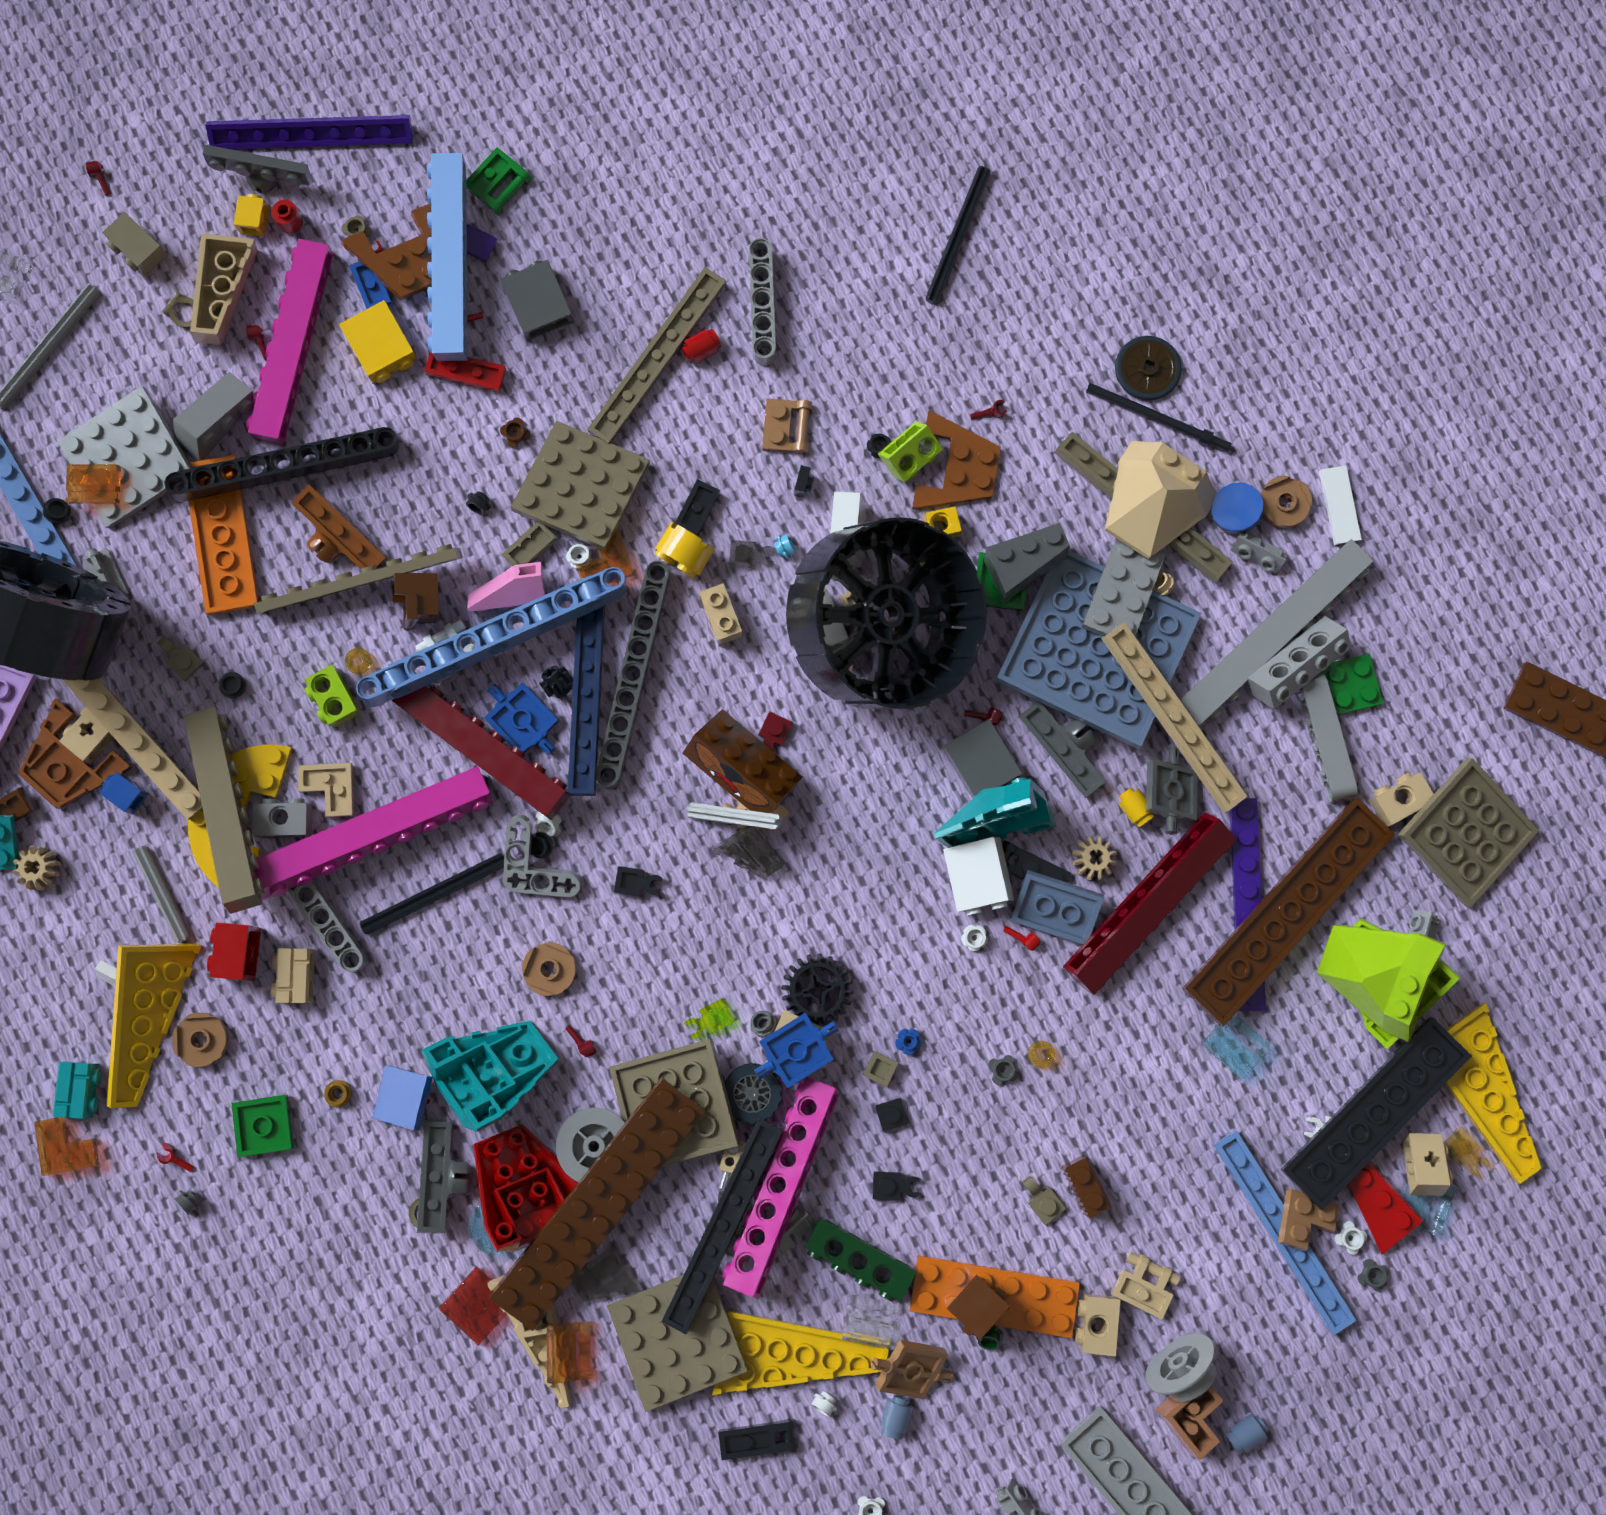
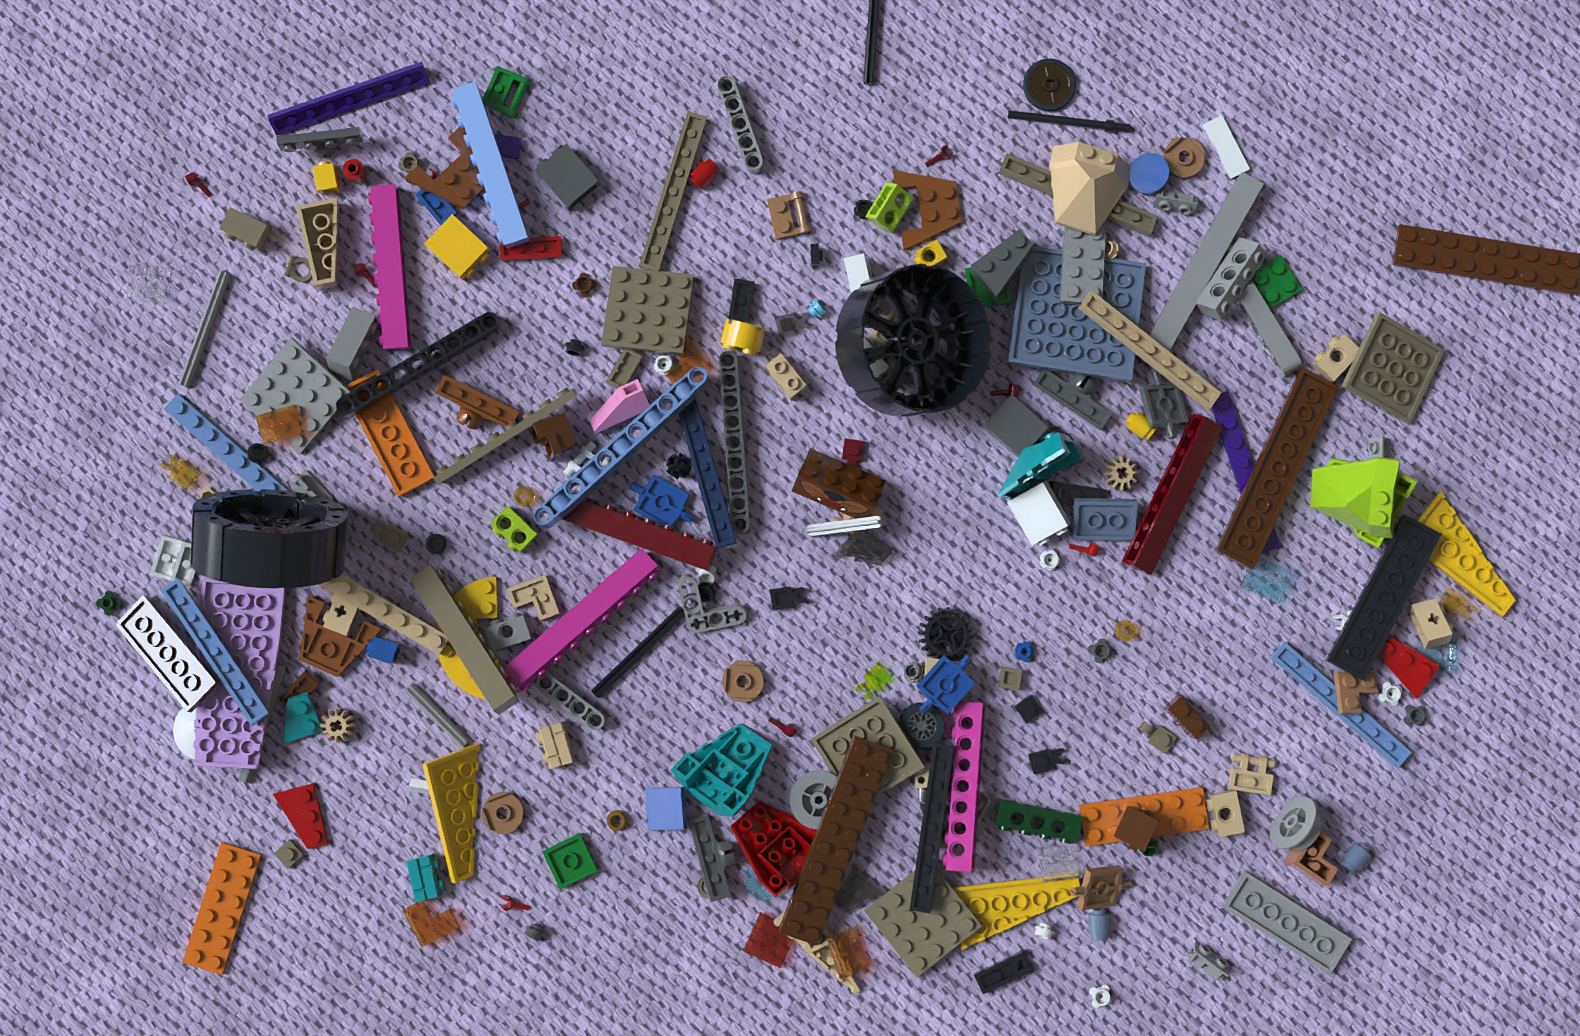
camera: 10 degrees left, 5 degrees up
(234, 951) = (507, 741): red brick -> none

